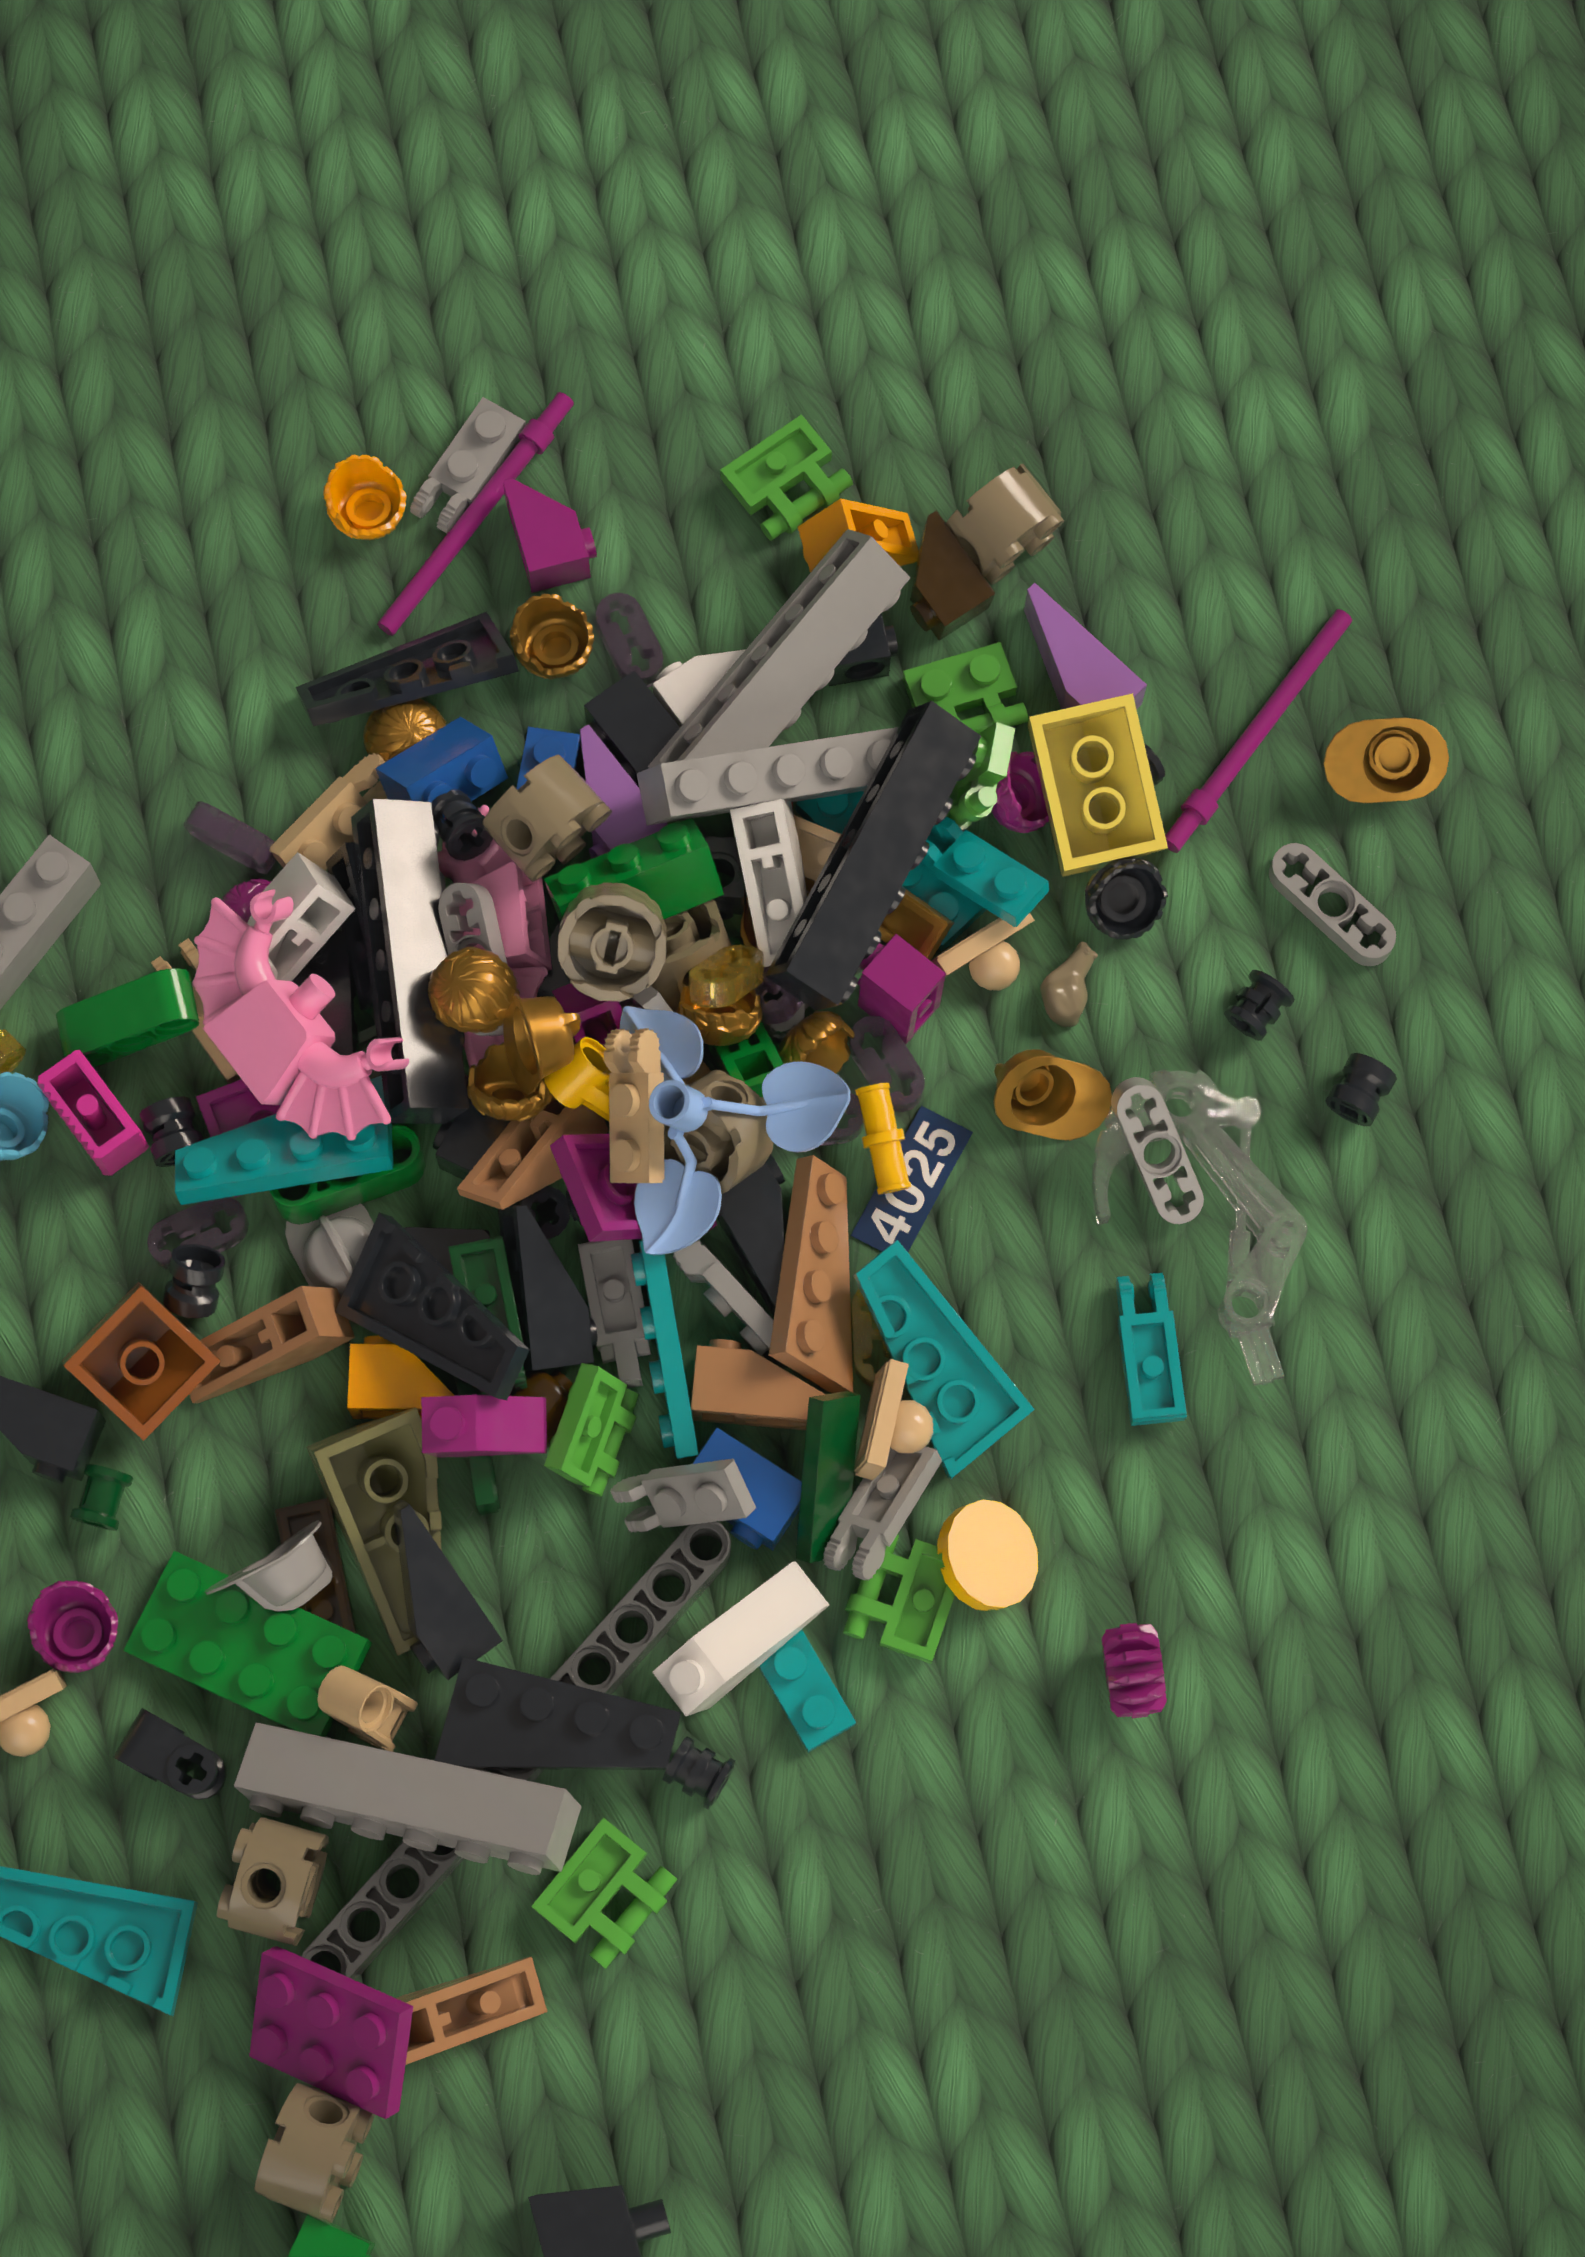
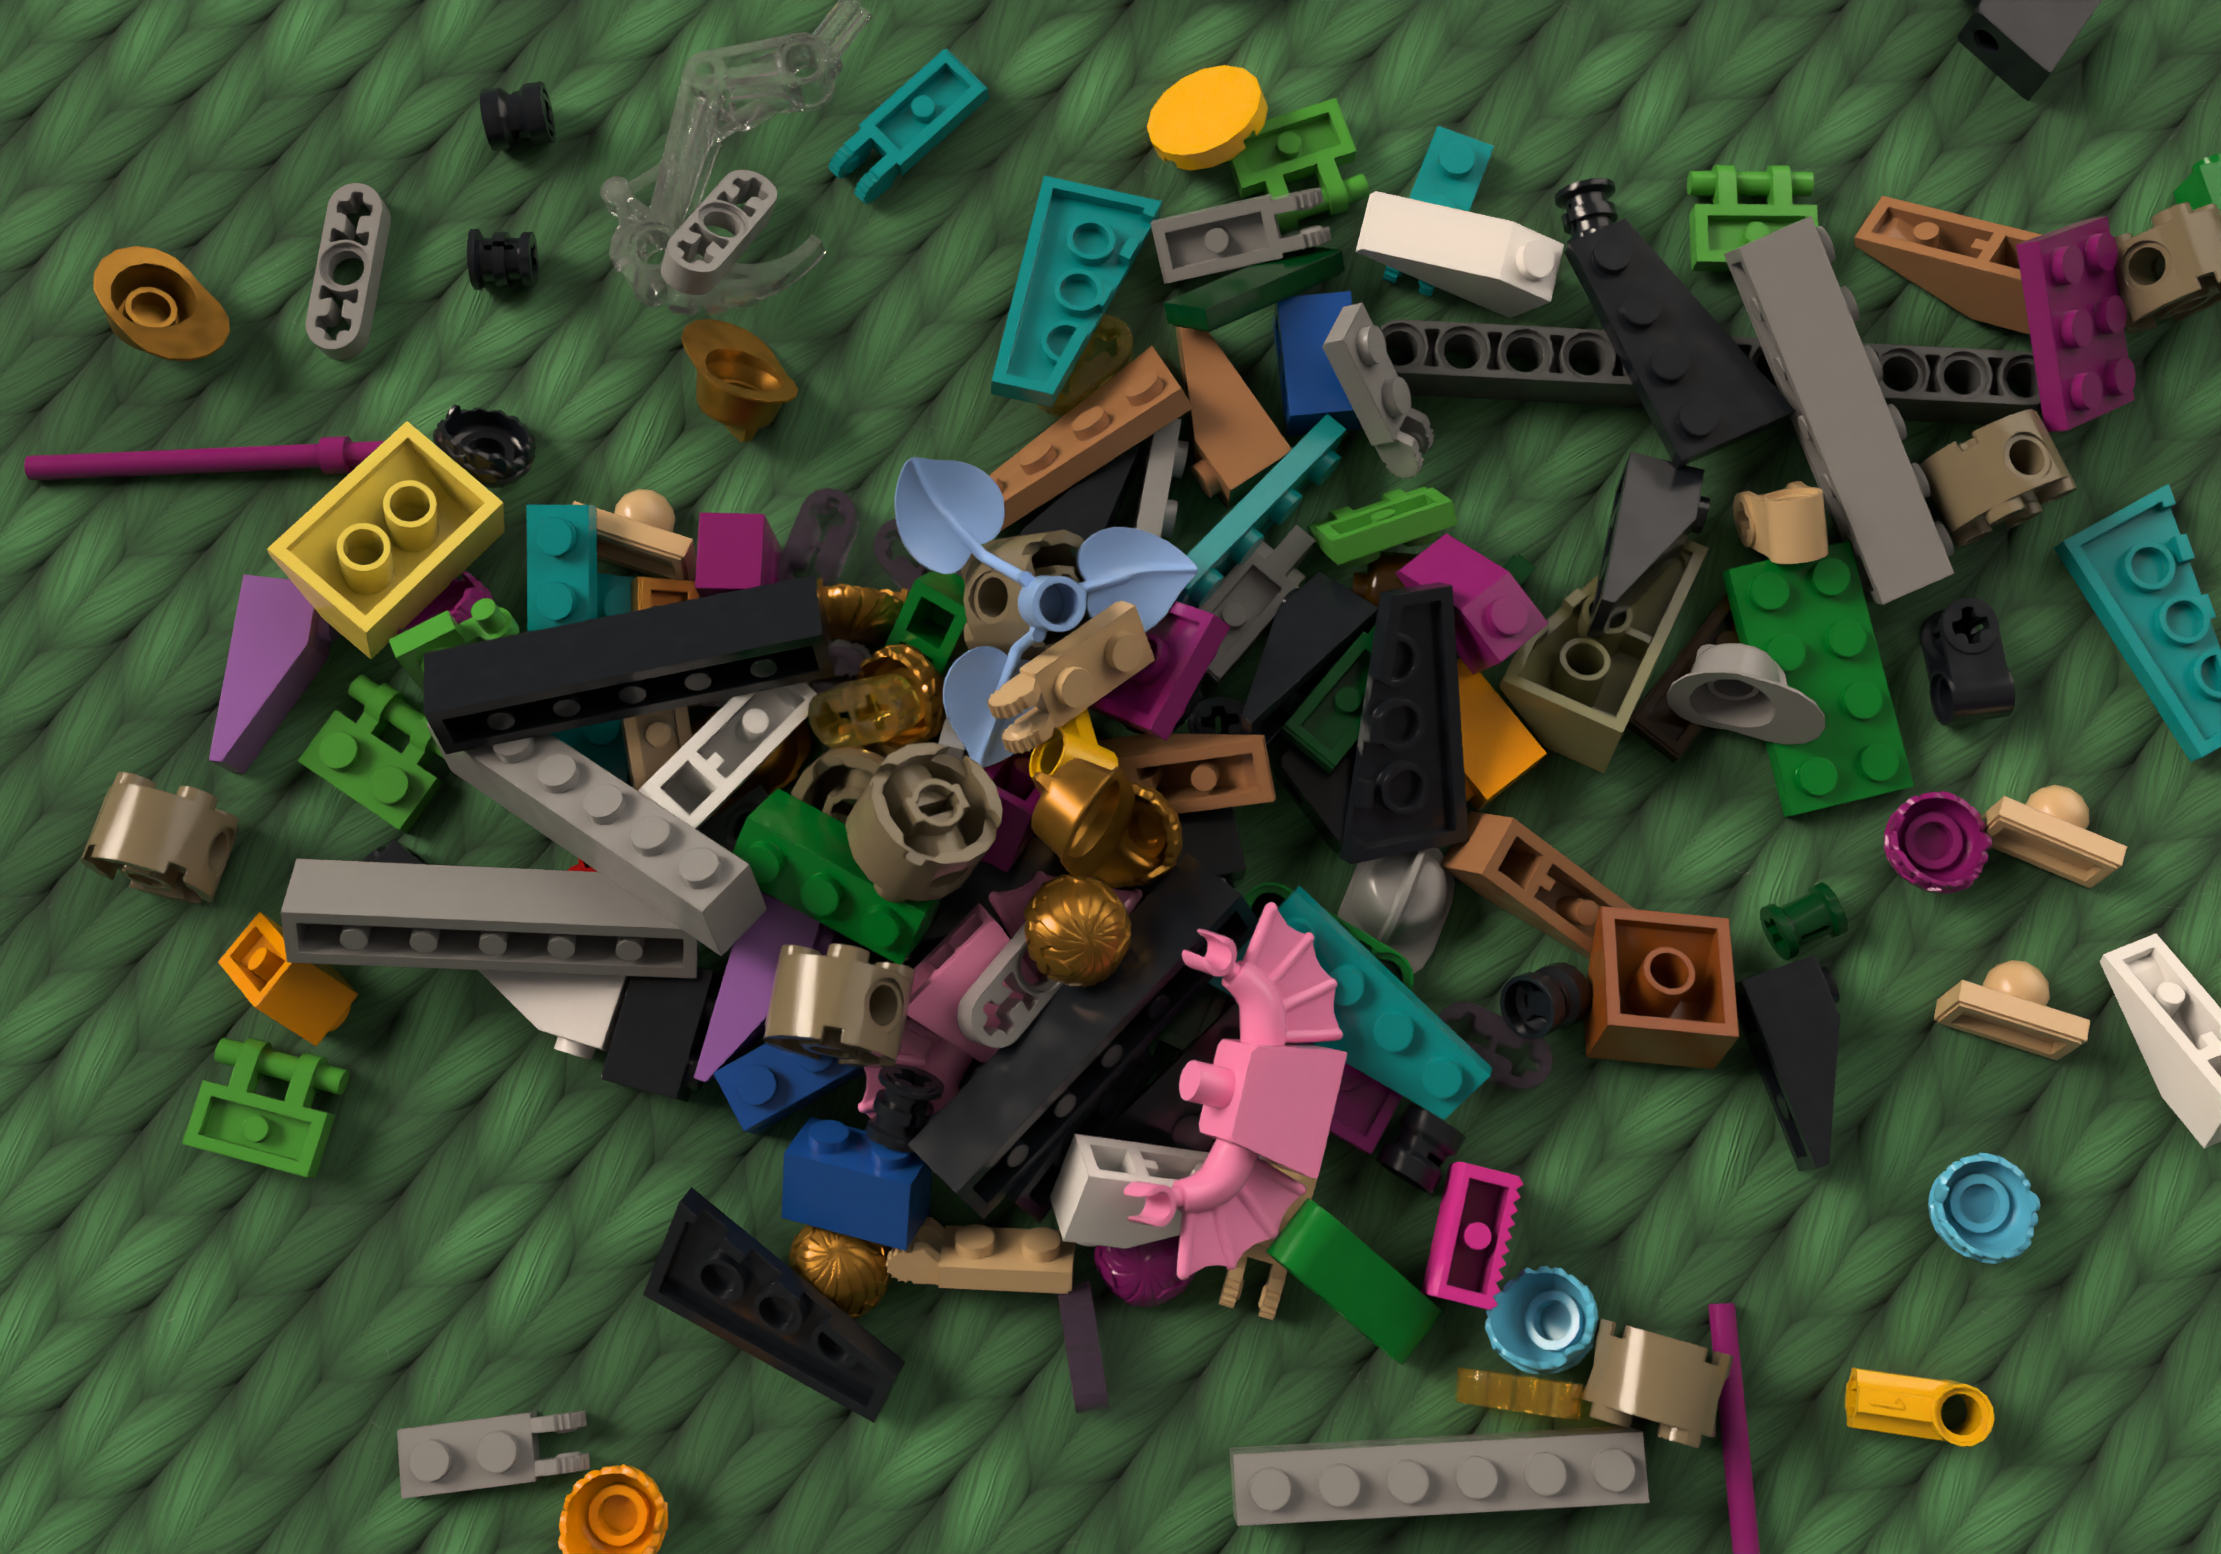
camera: 125 degrees left, 5 degrees up
(533, 440) = (410, 1403): magenta bar -> none
(548, 538) = (514, 1297): magenta slope -> none
(551, 637) = (623, 1199): pearl gold hair -> none
(639, 635) = (551, 1118): beam -> none
(883, 1138) = (877, 503): yellow pin -> none
(891, 1422) = (1162, 269): tan tile -> none
(930, 1155) = (880, 446): dark blue sticker -> none
(946, 582) = (262, 855): dark brown slope -> none
(1065, 987) = (616, 443): dark tan animal -> none

